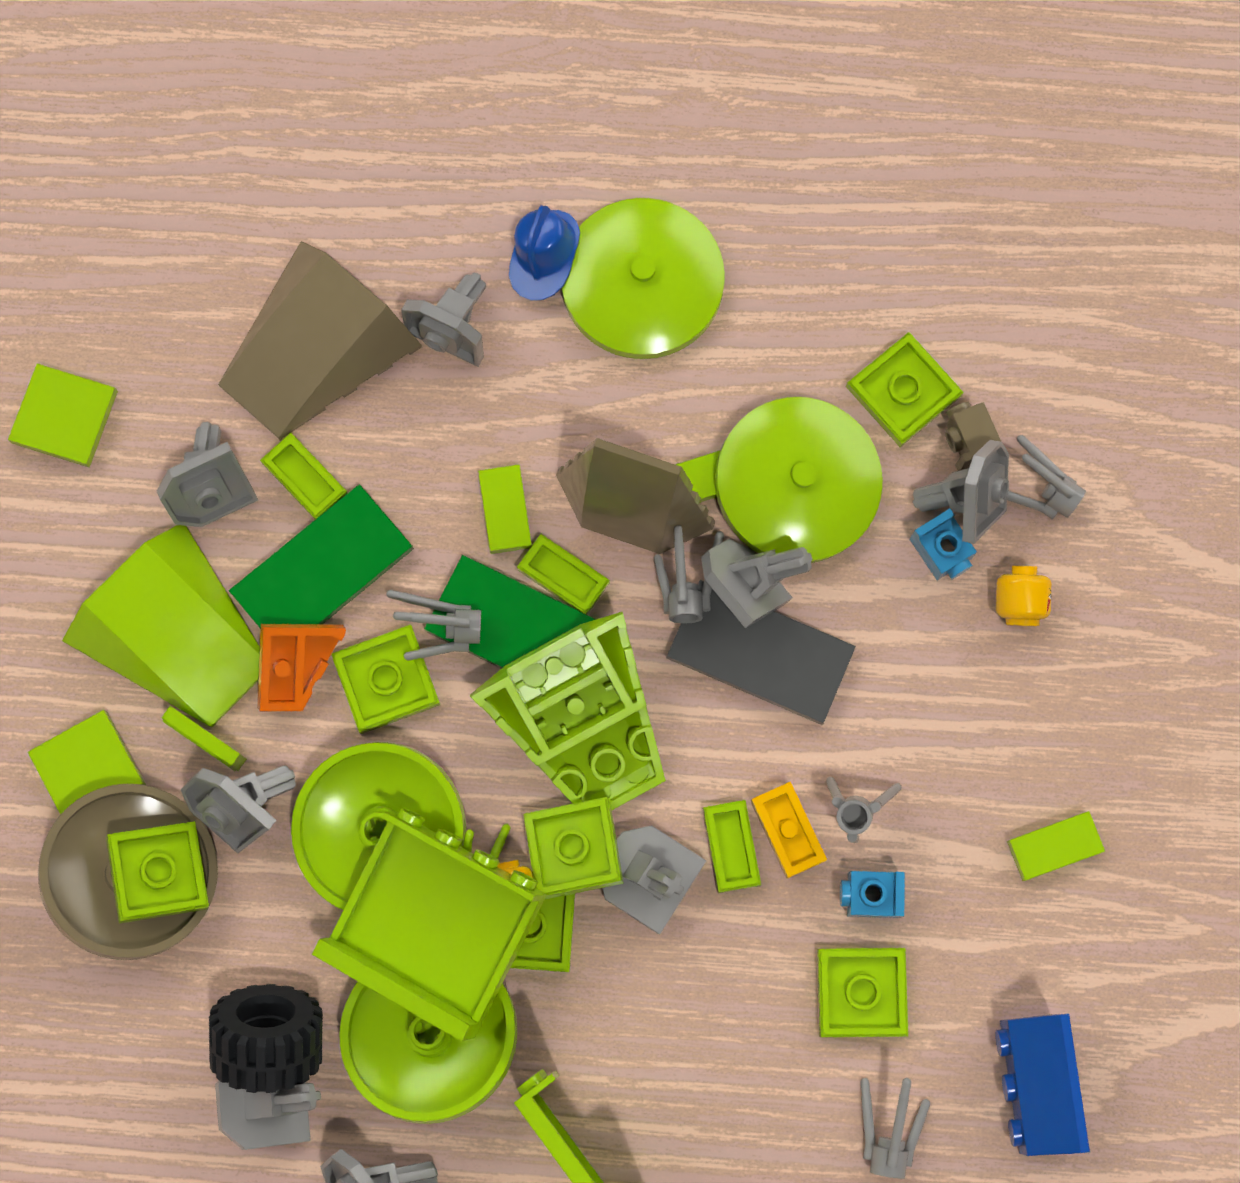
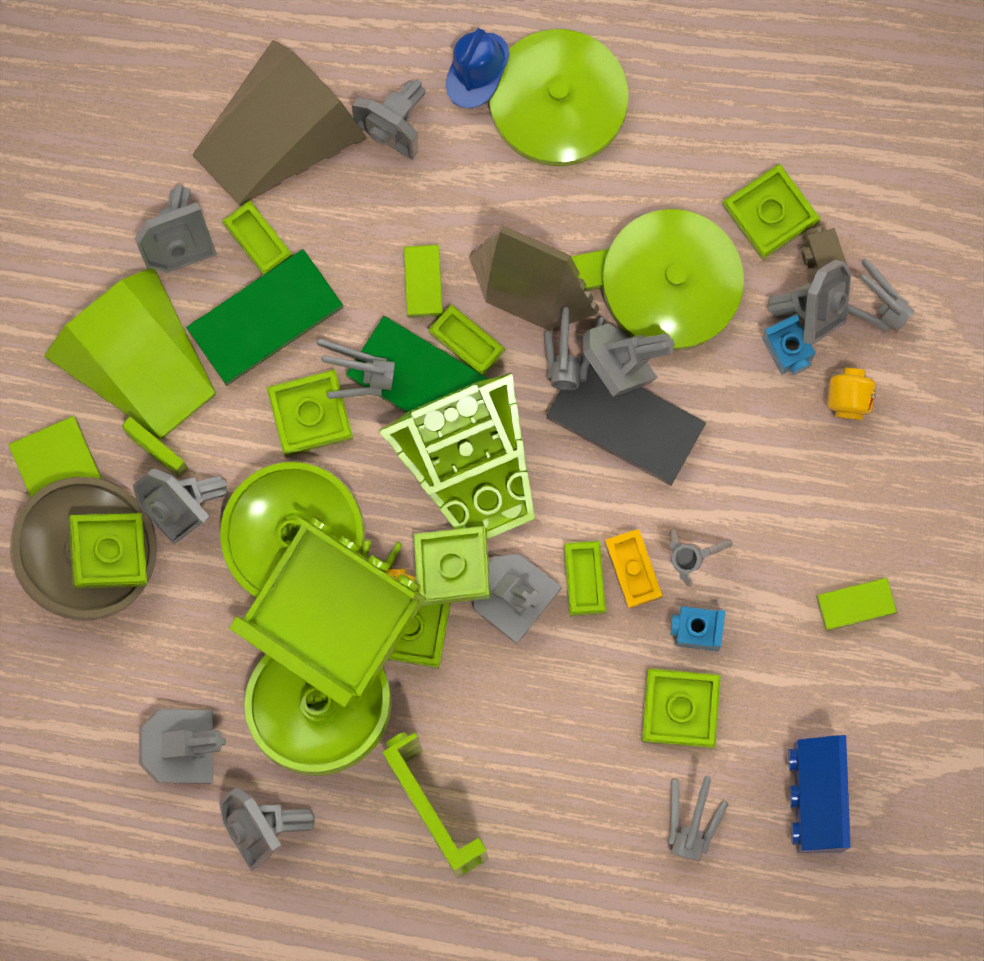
camera: 10 degrees right, 0 degrees up
(63, 415) = (60, 168): lime tile -> none
(265, 1038) = (184, 692): black tyre -> none
(292, 662) = (233, 391): orange wing -> none

